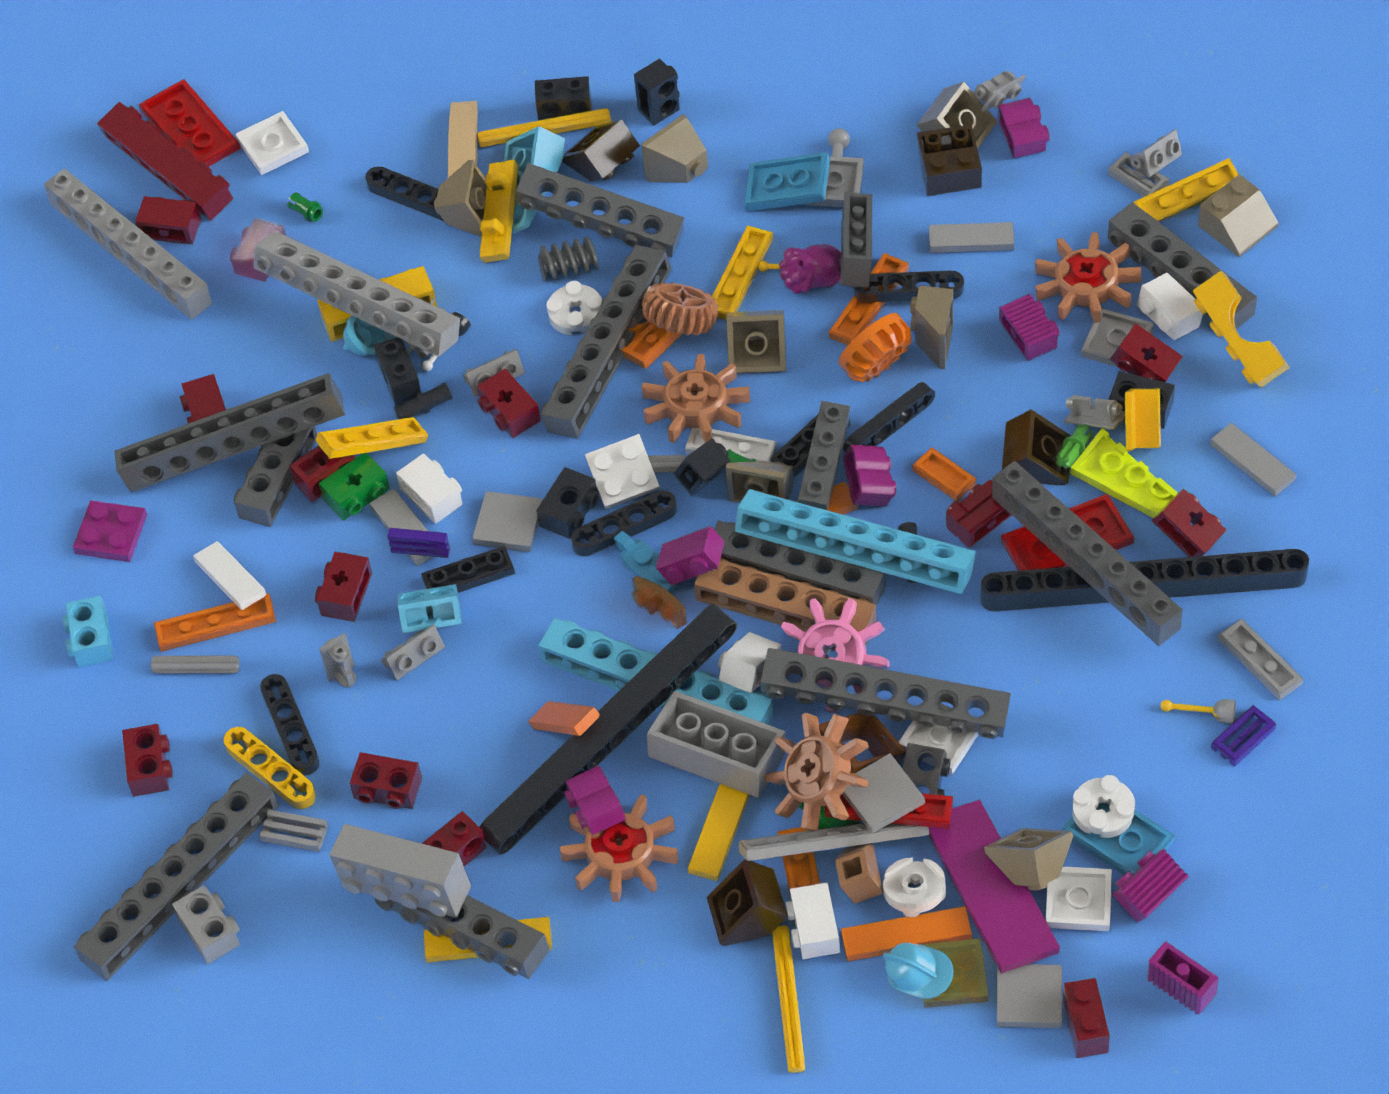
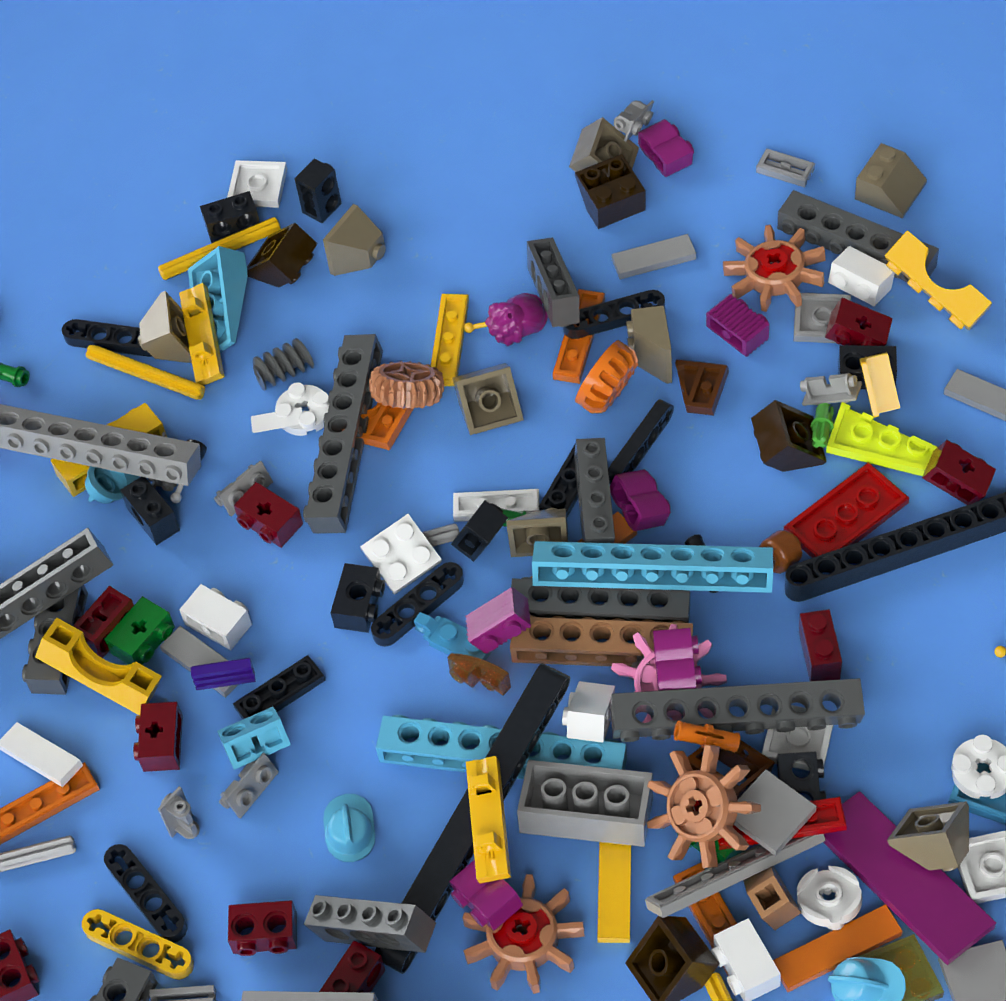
camera: 15 degrees left, 0 degrees up
(280, 486) = (68, 652): none -> yellow arch
(371, 437) = (144, 581): yellow tile -> none
(423, 402) = (183, 534): black pin -> none
(434, 235) = (145, 372): none -> yellow axle
(462, 134) = (144, 272): tan slope -> none
(480, 799) = (370, 923): none -> dark grey brick
(493, 713) = (349, 827): none -> medium azure piece
(507, 521) = (302, 630): light grey tile -> none
(540, 313) = (271, 421): none -> white sticker
(564, 718) = (426, 816): orange tile -> none
(591, 198) = (289, 301): dark grey brick -> none
(605, 66) = (262, 179): none -> white plate
(616, 733) = (488, 820): none -> yellow hinge
(695, 399) = (448, 467): nougat gear -> none
(787, 182) = (466, 245): dark azure tile -> none
(840, 631) = (675, 659): none -> magenta brick
(844, 172) = (508, 231): light grey plate -> none
(845, 708) = (706, 735): none -> orange pin
(944, 474) = (708, 481): orange tile -> none
(971, 378) = (701, 385): none -> reddish brown wing
(975, 515) = (756, 510): dark red brick -> none
(990, 557) = (786, 550): none -> dark orange head
(991, 655) = (820, 646): none -> dark red brick
(1087, 553) = (880, 524): dark grey brick -> none
(1159, 154) = (798, 142): light grey hinge -> none
(1187, 191) = (838, 168): yellow tile -> none

